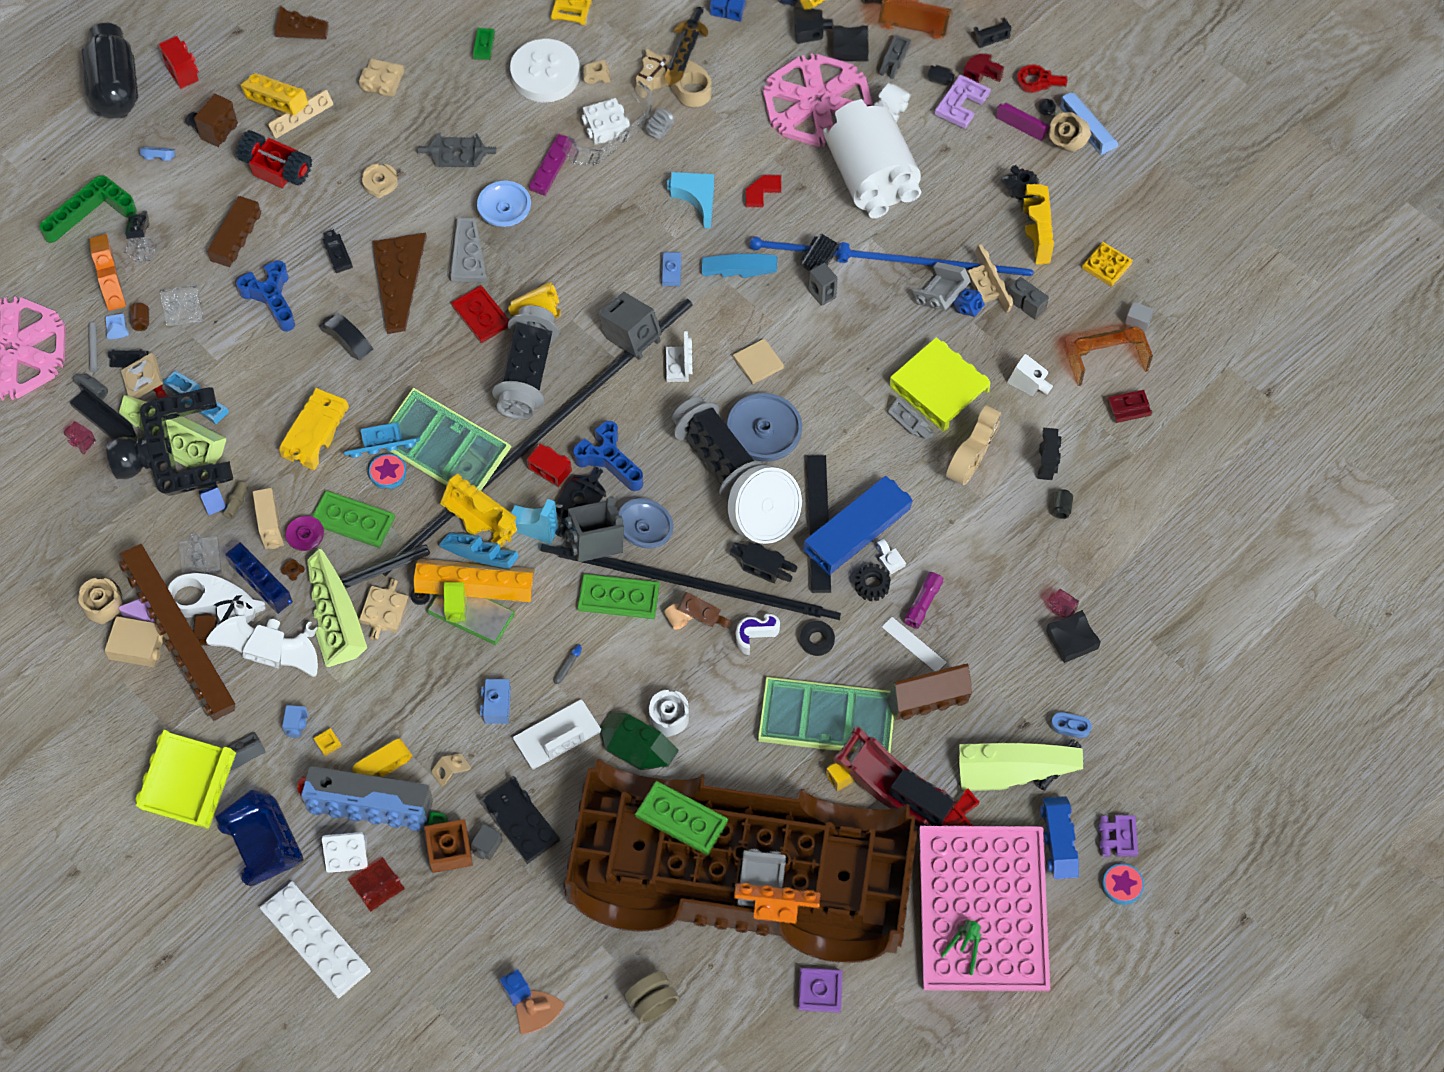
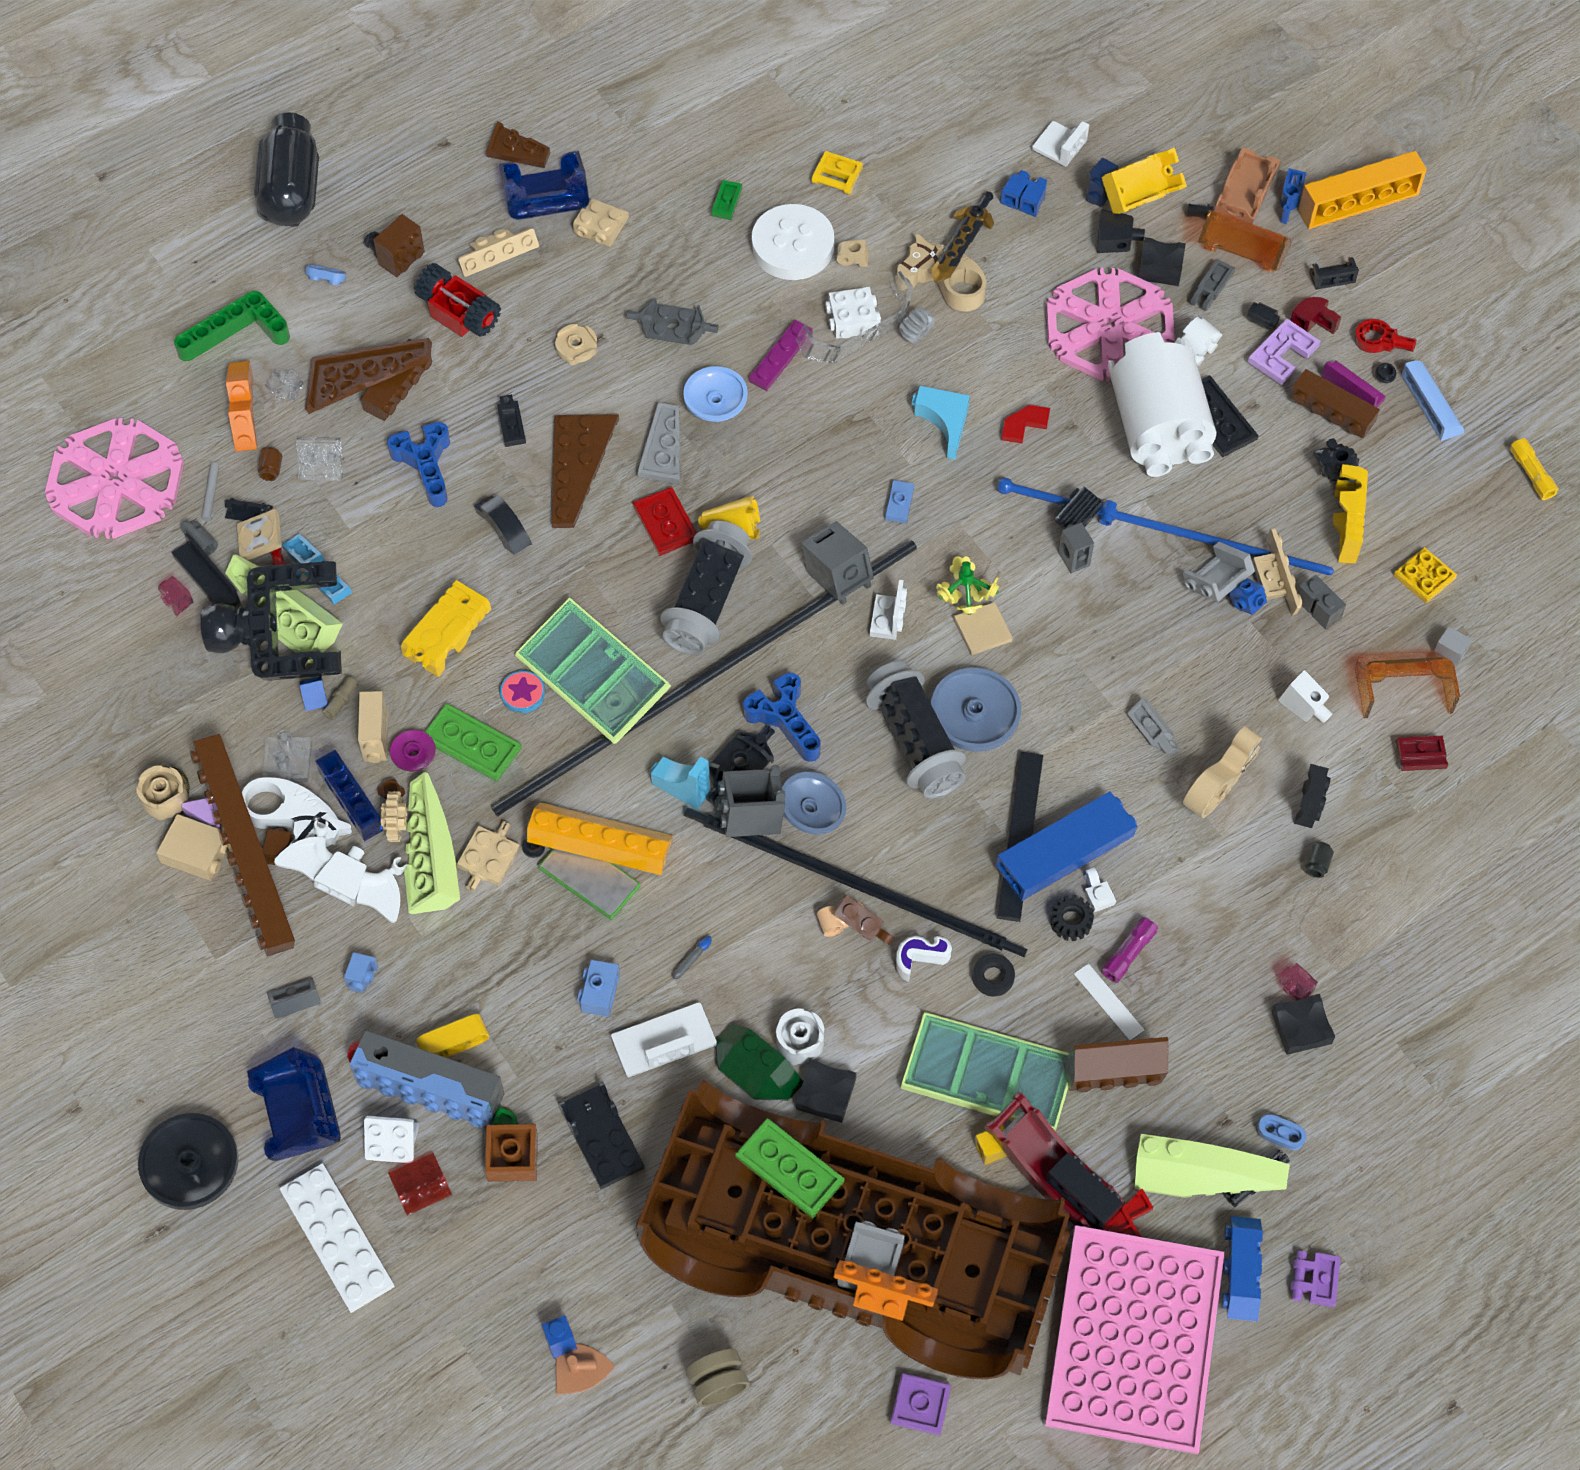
camera: 10 degrees right, 0 degrees up
(116, 326) = (241, 471): light blue tile -> none
(137, 225) = (286, 356): black plate -> none
(179, 62) = (369, 170): red brick -> none
(179, 898) = (188, 1161): none -> black dish
(185, 779) = (221, 1021): neon yellow panel -> none
(195, 230) = (350, 372): none -> reddish brown wing
(274, 94) = (472, 224): yellow brick -> none
(299, 589) = (394, 816): none -> tan gear
(327, 742) = (394, 1003): yellow tile -> none
(330, 58) = (545, 191): none -> clear blue windscreen
(381, 437) = (521, 650): dark azure bracket -> none
(385, 566) = (498, 805): black axle -> none
(451, 765) = (532, 1056): tan bracket -> none
(455, 602) = (571, 861): lime slope -> none
(476, 550) = (610, 804): dark azure slope -> none
(478, 510) = (619, 758): yellow piece -> none
(486, 842) = (557, 1156): dark grey brick -> none
(549, 465) = (713, 714): red brick -> none
(618, 596) = (766, 885): bright green tile -> none
(698, 753) = (826, 1091): none -> black brick
(735, 318) = (964, 574): none -> light yellow plant
(736, 264) = (981, 508): dark azure slope -> none
(762, 562) = (944, 872): black hinge -> none
(764, 504) = (958, 803): white brick -> none
(932, 169) = (1231, 427): none -> black tile
(939, 383) = (1195, 689): neon yellow panel -> none
(969, 932) = (1113, 1366): green plant -> none
(1010, 137) = (1334, 403): none -> reddish brown brick
(1069, 131) = (1407, 407): tan brick -> none
(1123, 884) = (1311, 1338): tile -> none
(1171, 157) = (1541, 480): none -> yellow axle

